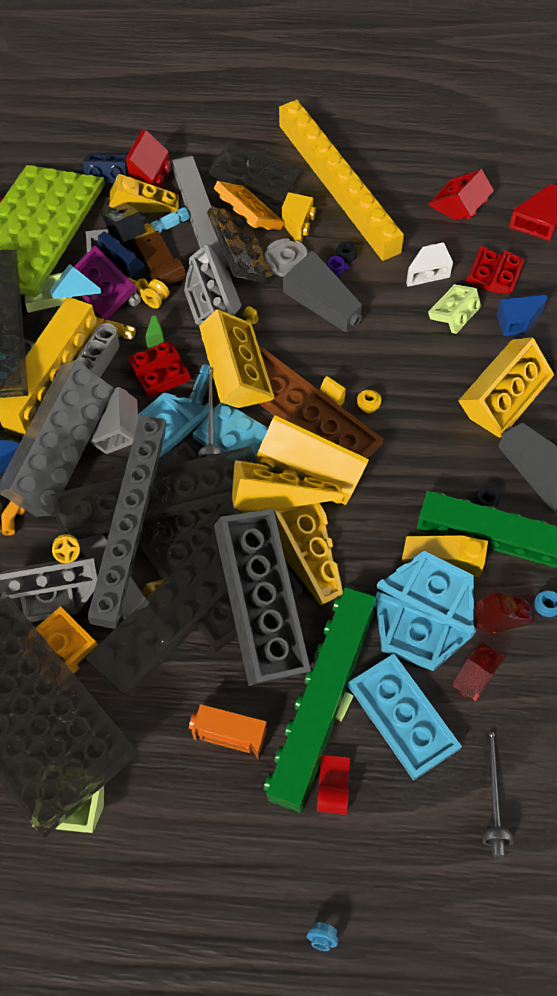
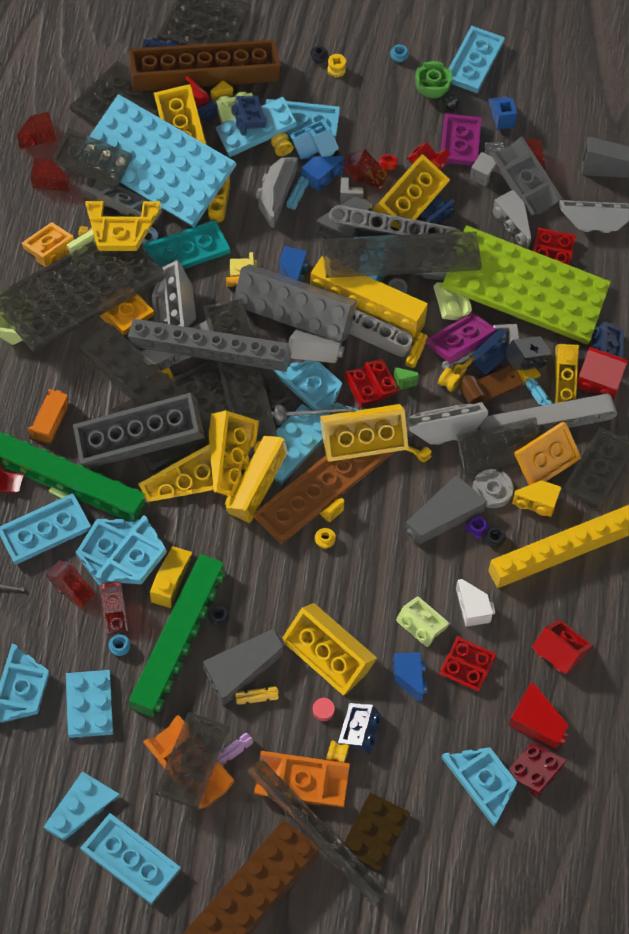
camera: 90 degrees right, 0 degrees up
(66, 553) = (193, 308): yellow wheel -> none
(72, 284) = (442, 311): medium azure slope -> none

